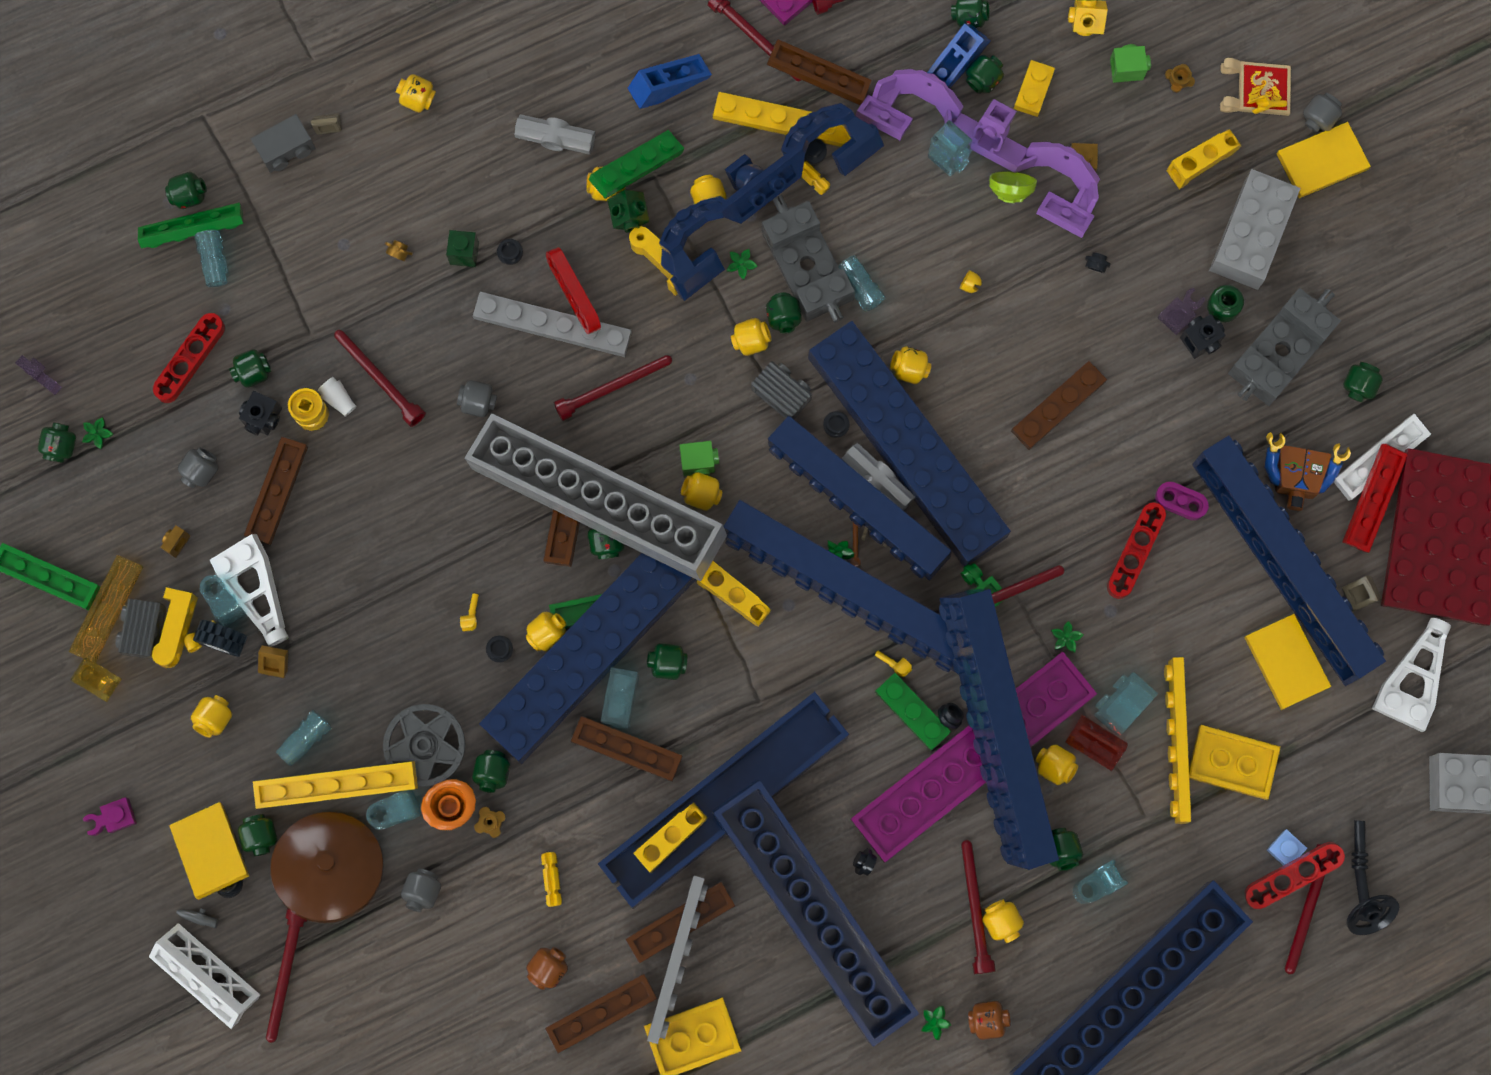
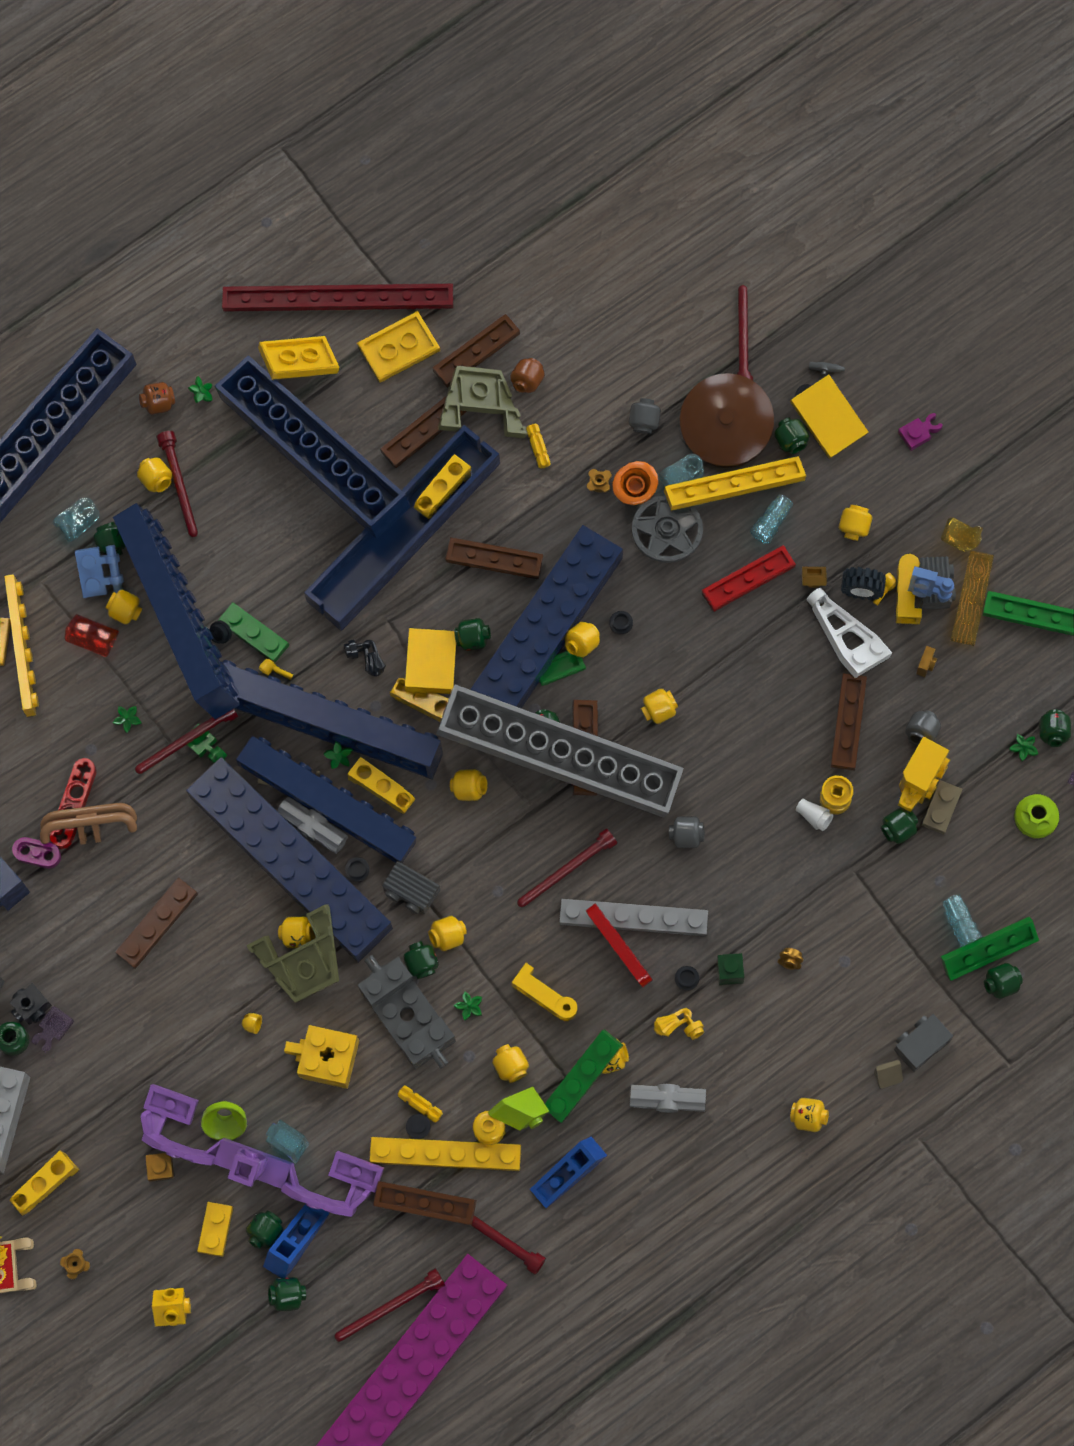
camera: 175 degrees right, 5 degrees down
(110, 367) = (1036, 827): none -> lime piece
(148, 608) = (926, 583): none -> medium blue plate
(184, 355) = (960, 828): red beam -> none
(198, 978) = (811, 316): white fence -> none
(201, 383) = (942, 807): none -> dark tan plate
(211, 411) = (921, 773): none -> yellow hinge
(222, 604) = (872, 616): clear light blue piece -> none
(260, 414) = (879, 783): black brick -> none
(346, 676) = (748, 578): none -> red tile
(411, 413) = (745, 813): dark red piece -> none
(469, 622) = (652, 640): yellow hand -> none
(476, 541) = (659, 706): none -> yellow head
(491, 771) = (606, 519): dark green head -> none
(539, 208) = (667, 1024): none -> yellow piece
(604, 954) = (481, 392): none -> olive wing
(620, 698) = (507, 595): clear light blue brick -> none
(628, 210) = (581, 1030): dark green brick -> none
(674, 970) = (421, 387): light grey plate -> none
(698, 458) = (476, 814): bright green brick -> none
(705, 142) = (520, 1110): none -> lime slope
(719, 636) = (430, 661): none -> yellow tile
(742, 132) = (488, 1129): none -> yellow head
(757, 188) = (460, 1070): dark blue piece -> none
(782, 648) = (373, 663): none -> black piece
(797, 508) = (380, 785): none -> yellow leg
(813, 1036) = (298, 357): none -> yellow tile
(855, 560) = (320, 752): dark orange hinge -> none
(864, 862) = (276, 502): black plate -> none
(865, 290) = (353, 1002): clear light blue axle -> none
(908, 322) = (306, 967): none -> olive wing
(910, 238) = (318, 1043): none -> yellow hinge
(954, 769) = (214, 586): magenta plate -> none
(1089, 811) = (92, 574): none -> medium blue plate
(1097, 262) = (135, 1061): black plate -> none
(1122, 521) = (87, 816): none -> medium nougat piece
(1125, 703) = (70, 667): clear light blue brick -> none
(1129, 63) = (125, 1267): bright green brick -> none

